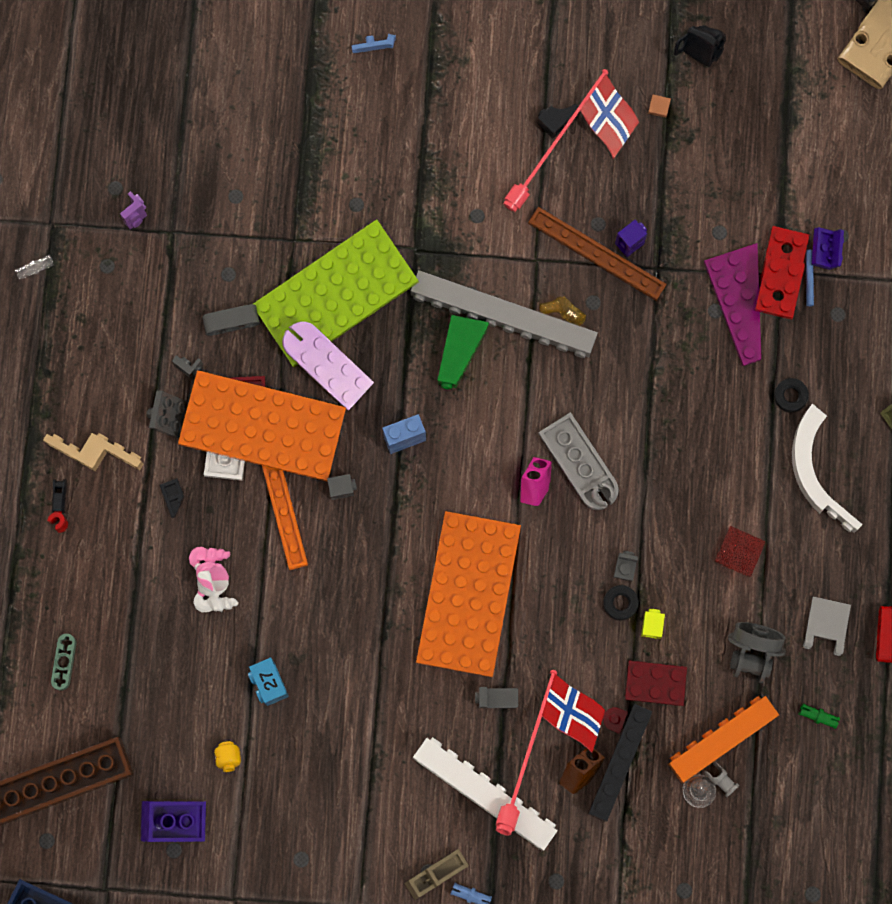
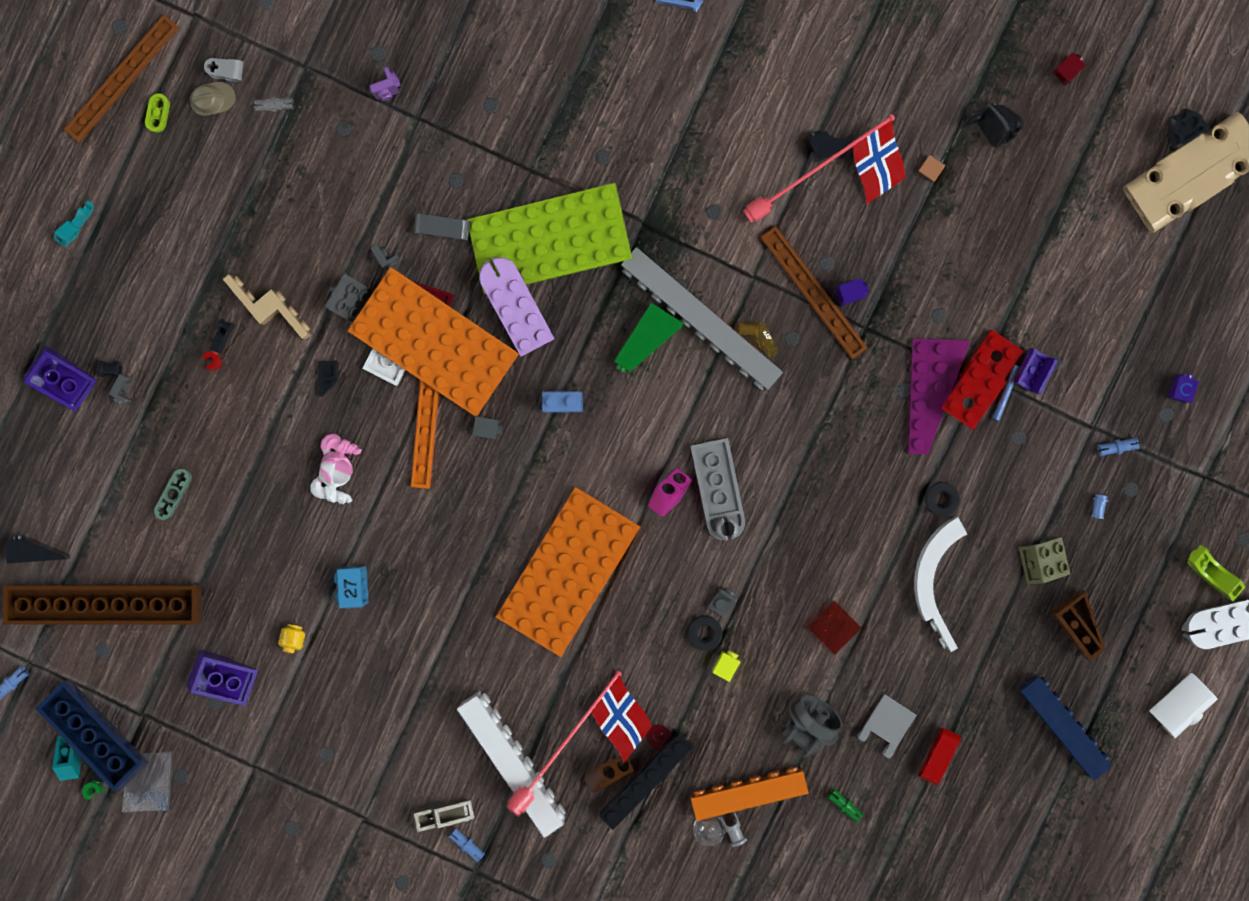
camera: 15 degrees right, 10 degrees up
(497, 697) = (557, 678): dark grey bracket -> none
(655, 683) = (708, 718): dark red plate -> none

